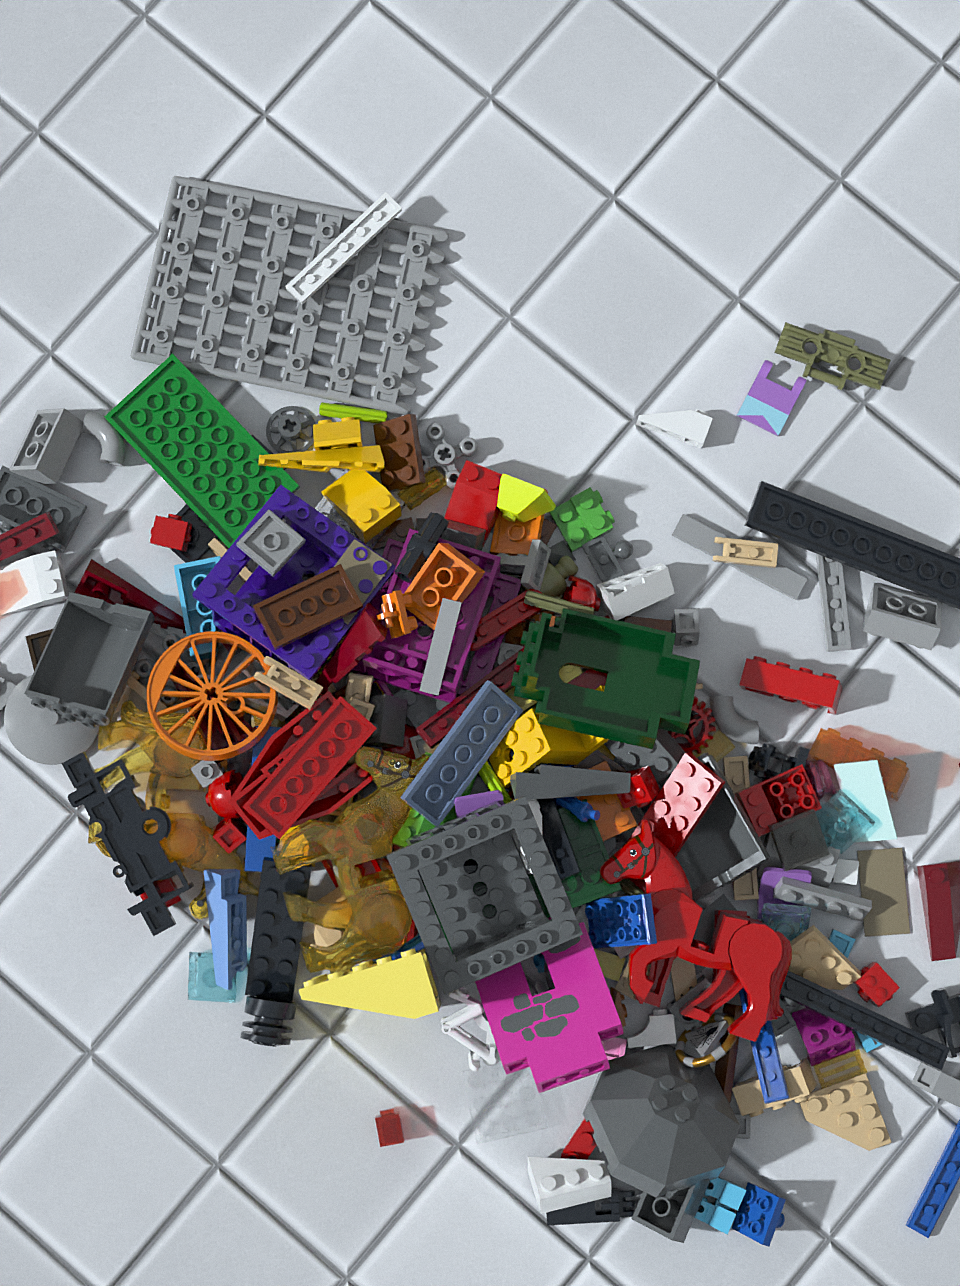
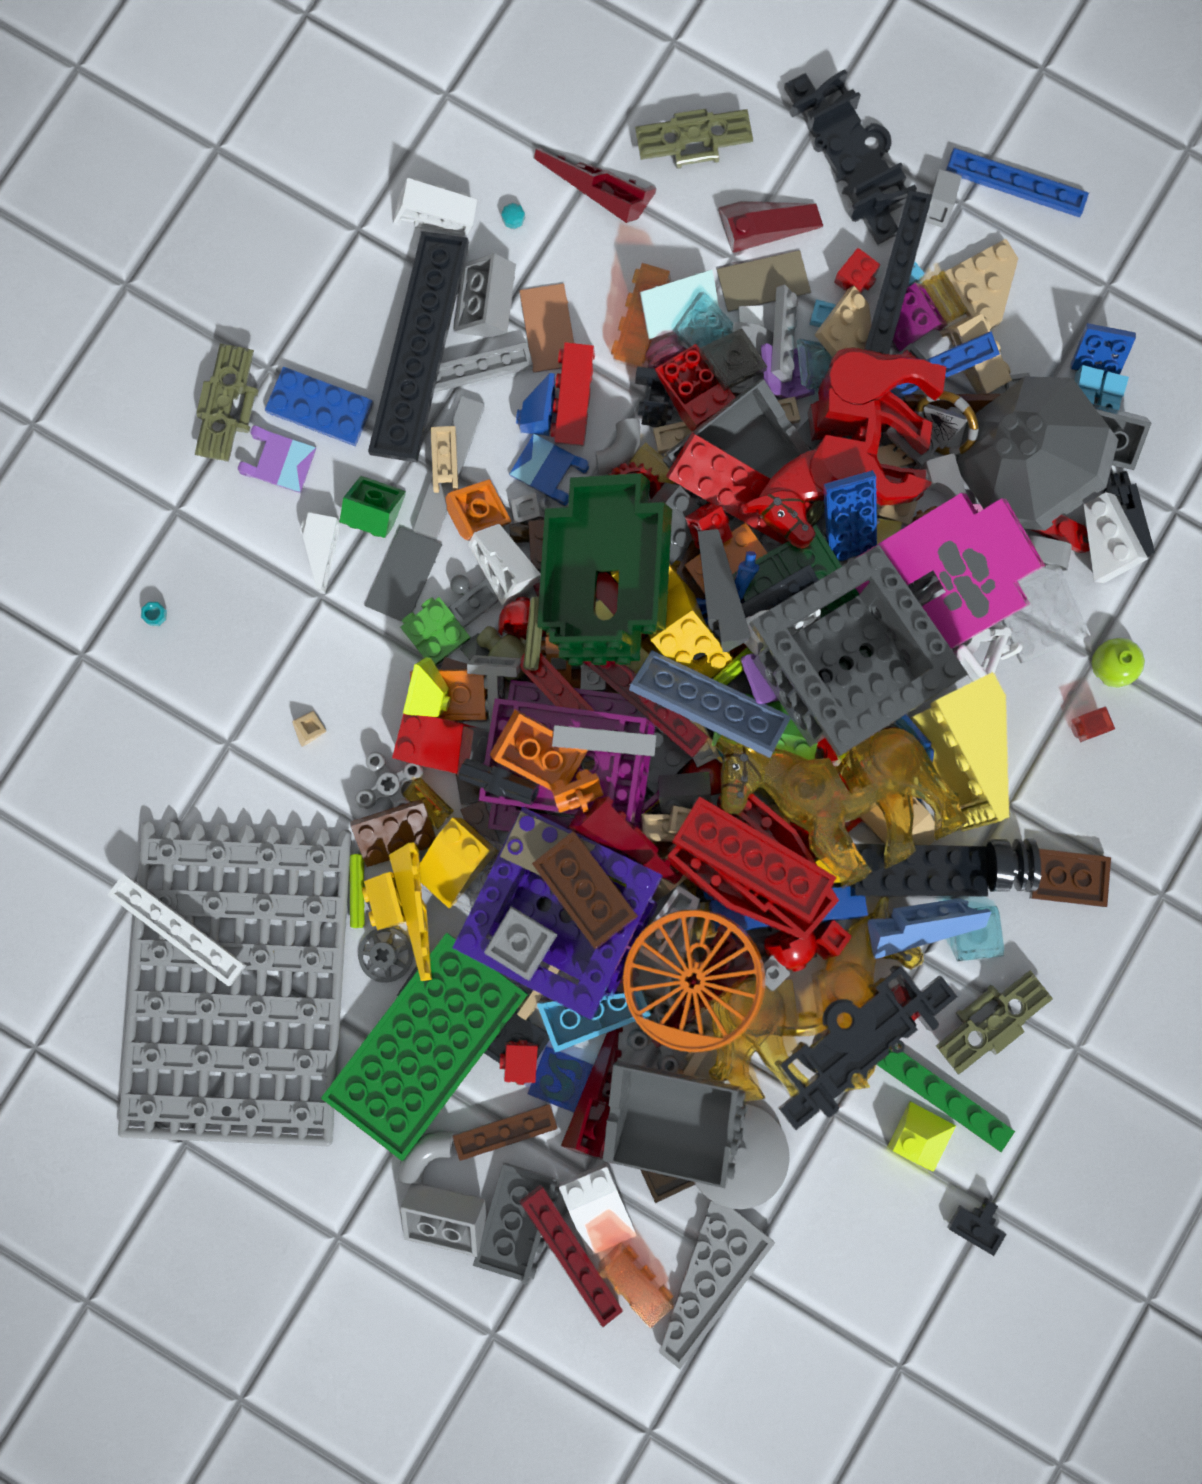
camera: 100 degrees left, 0 degrees up
(37, 889) = (921, 1136): none -> neon yellow slope
(67, 919) = (947, 1099): none -> green plate
(113, 512) = (504, 1132): none -> reddish brown plate
(121, 979) = (998, 1028): none -> olive piece
(150, 569) = (560, 1079): none -> clear blue tile
(248, 1078) = (1073, 878): none -> reddish brown plate
(290, 683) = (667, 897): tan hinge -> none
(446, 1167) = (1118, 662): none -> lime cylinder
(511, 391) = (308, 728): none -> tan slope
(564, 1117) = (1052, 552): none -> light grey beam
(640, 266) = (153, 613): none -> teal tile
(642, 499) = (403, 574): none -> dark grey window
(664, 611) = (519, 533): none -> dark brown hose
(693, 575) = (476, 508): none -> orange slope
(711, 478) = (371, 506): none -> green slope
(726, 647) = (544, 466): none -> blue flag
(782, 647) = (538, 408): none -> blue slope
(818, 444) = (319, 406): none -> blue plate
(869, 672) = (546, 324): none -> nougat window

